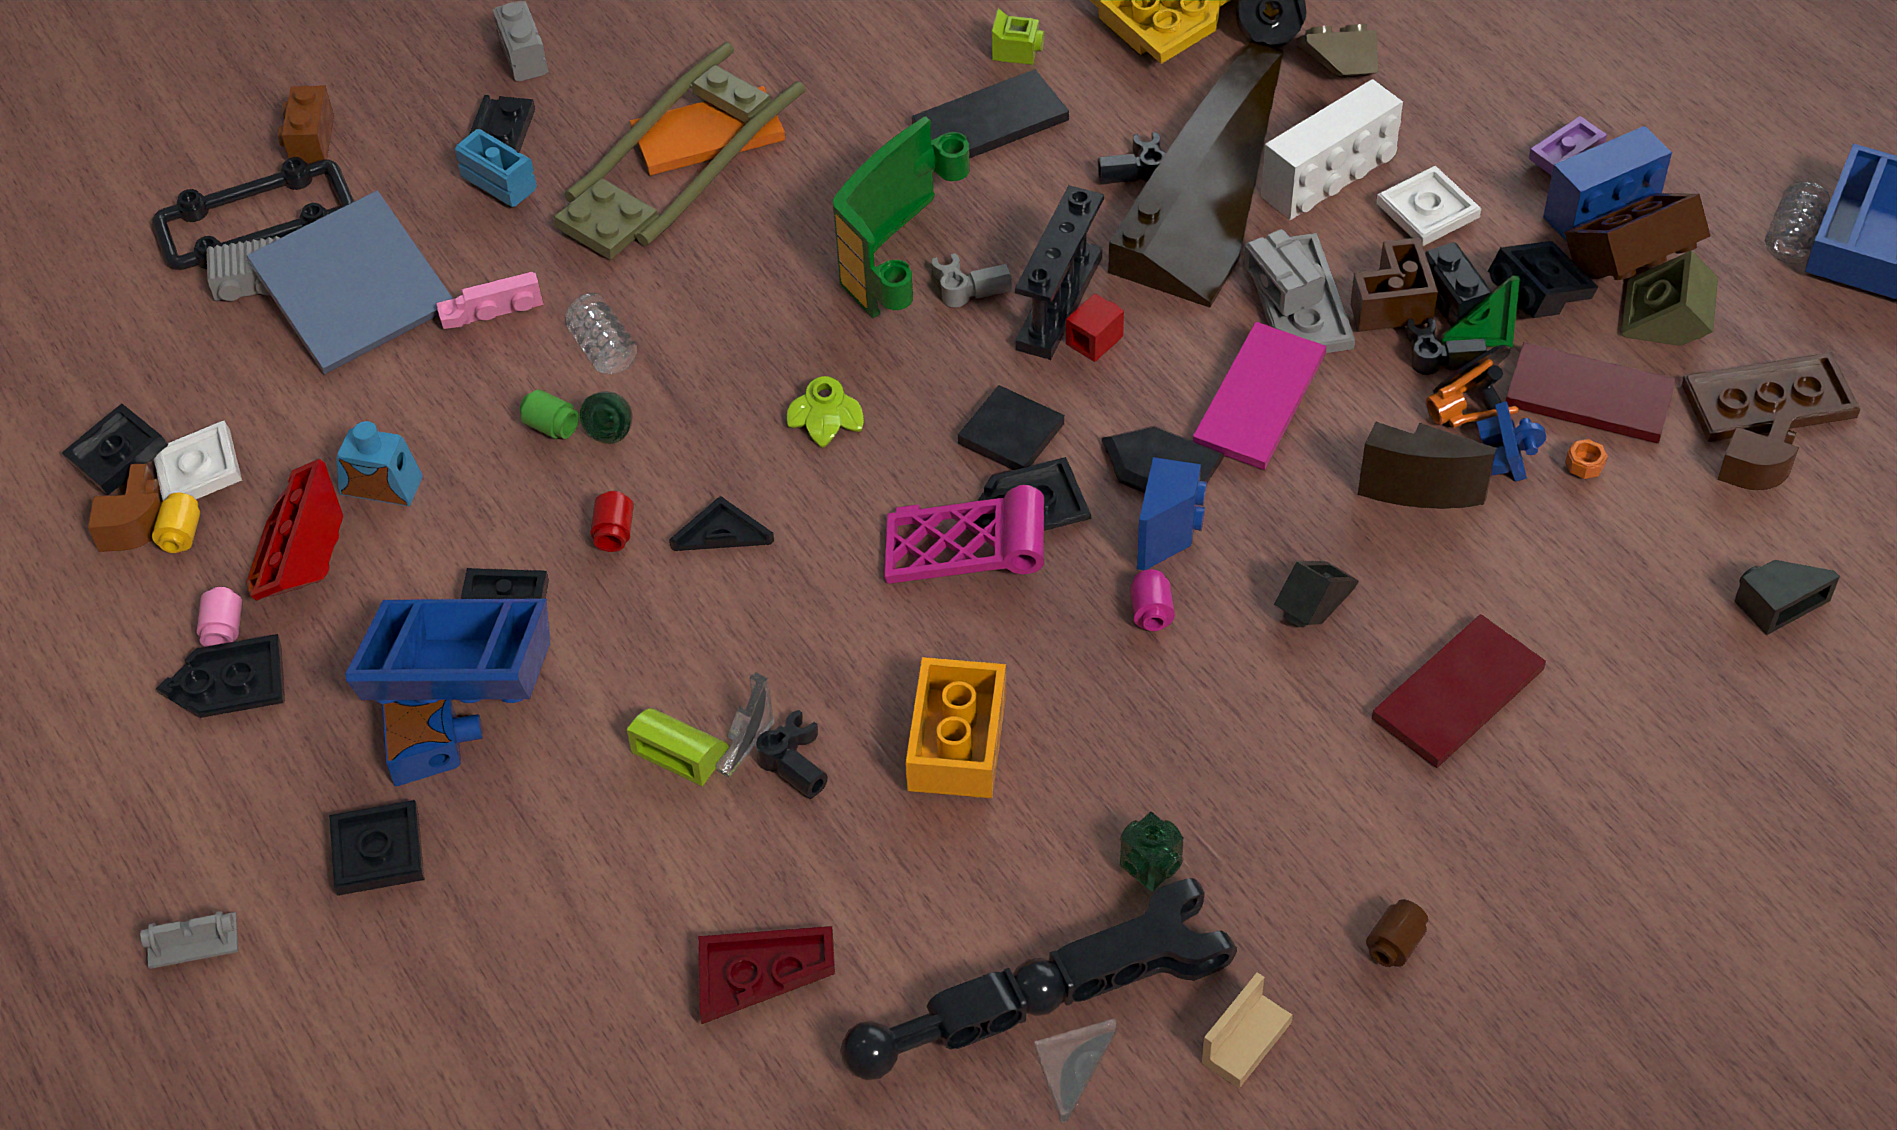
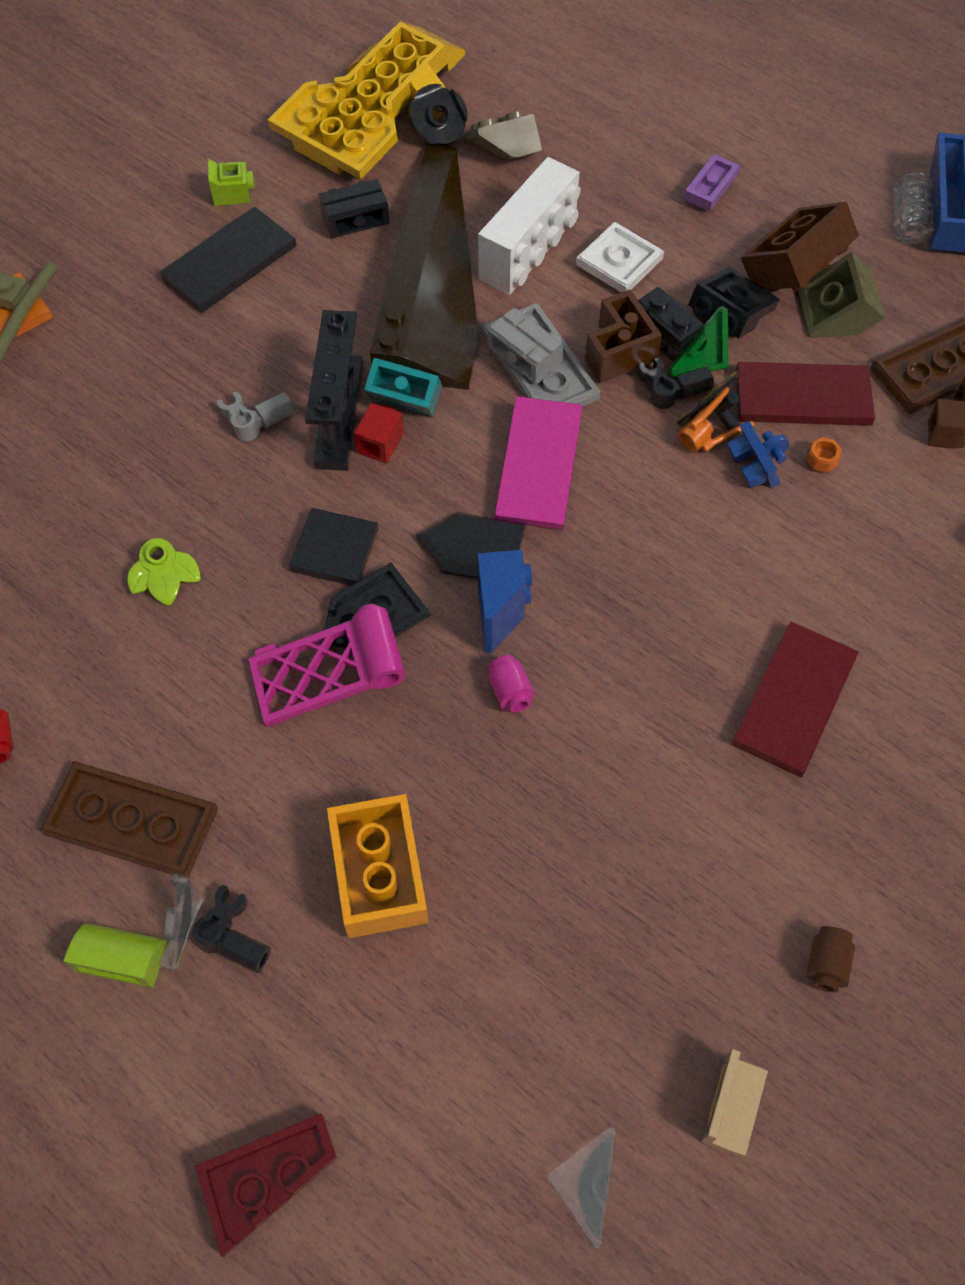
camera: 20 degrees left, 10 degrees up
(721, 527) = (96, 712): black tile -> none
(723, 630) = (129, 819): none -> reddish brown tile
(882, 200) = (156, 359): green panel -> none
(1072, 974) = (534, 1119): black piece -> none
(1128, 167) = (362, 278): black bar -> none
(1135, 286) = (403, 387): none -> teal brick
(1144, 93) = (354, 208): none -> black brick
(1151, 850) = (591, 954): clear green brick -> none
(1313, 592) = (647, 639): pearl dark grey slope -> none
(1425, 468) = (705, 499): dark brown slope -> none
(1606, 179) = (758, 206): blue brick -> none

